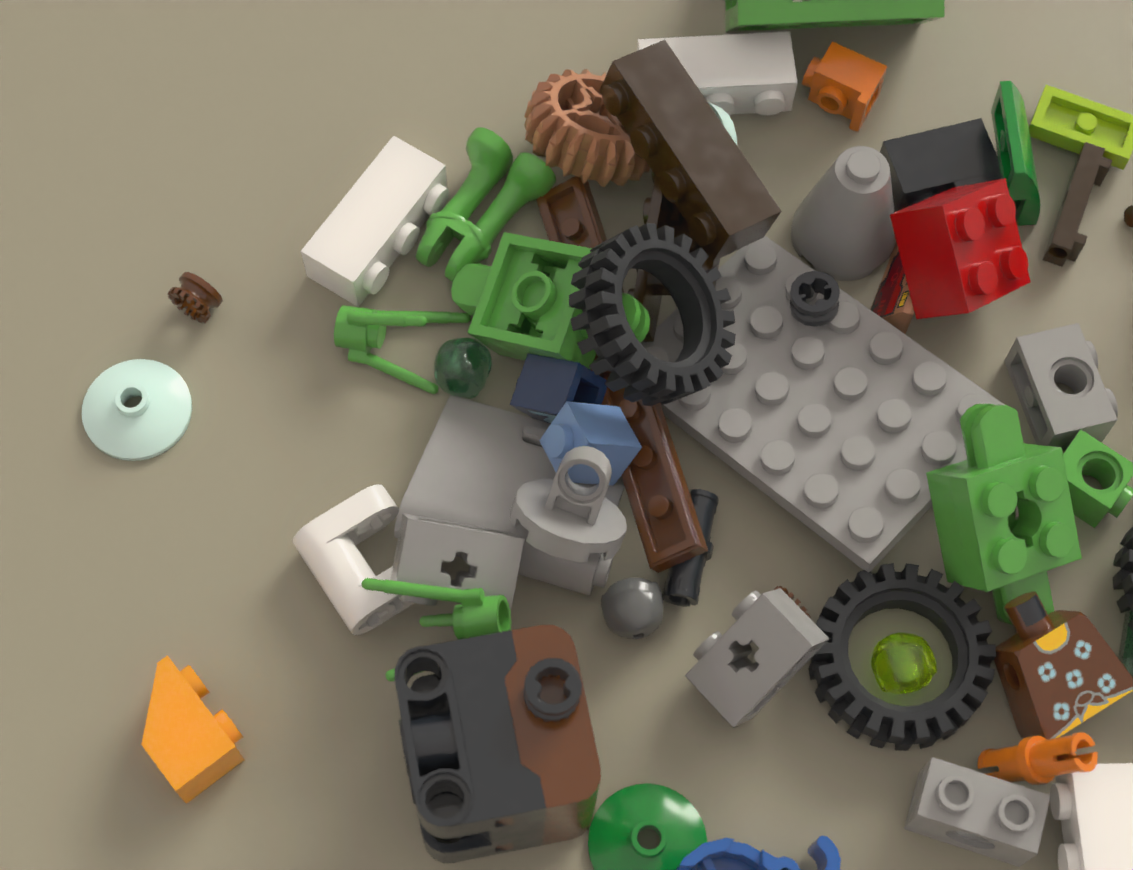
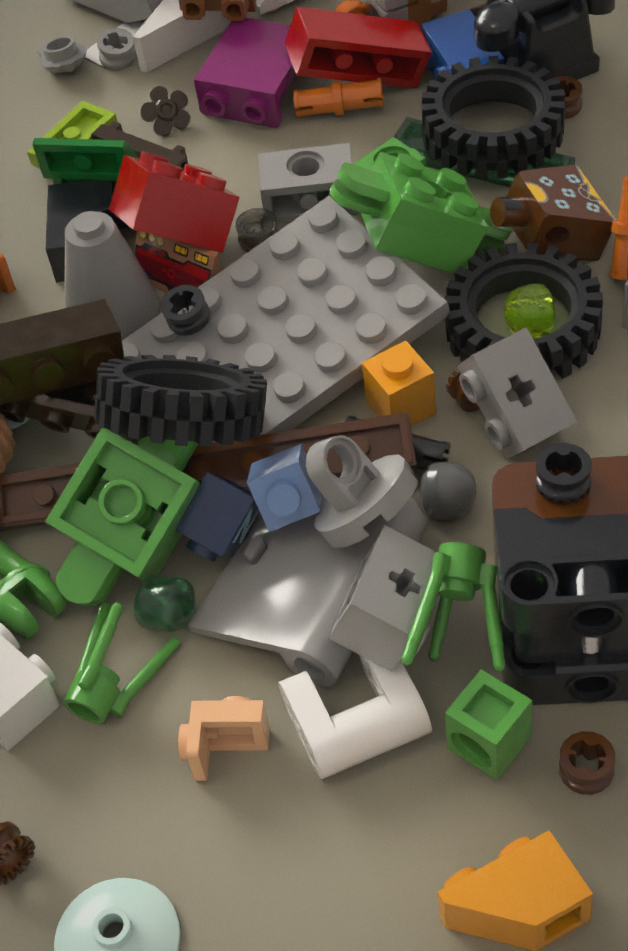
camera: 70 degrees left, 15 degrees down
(318, 782) = (591, 746): none -> reddish brown bush
(326, 429) = (222, 726): none -> light nougat bracket
(347, 680) = (488, 724): none -> bright green brick
(761, 537) = (399, 383): none -> light orange brick
(978, 338) = (254, 220): none -> clear smoke bush

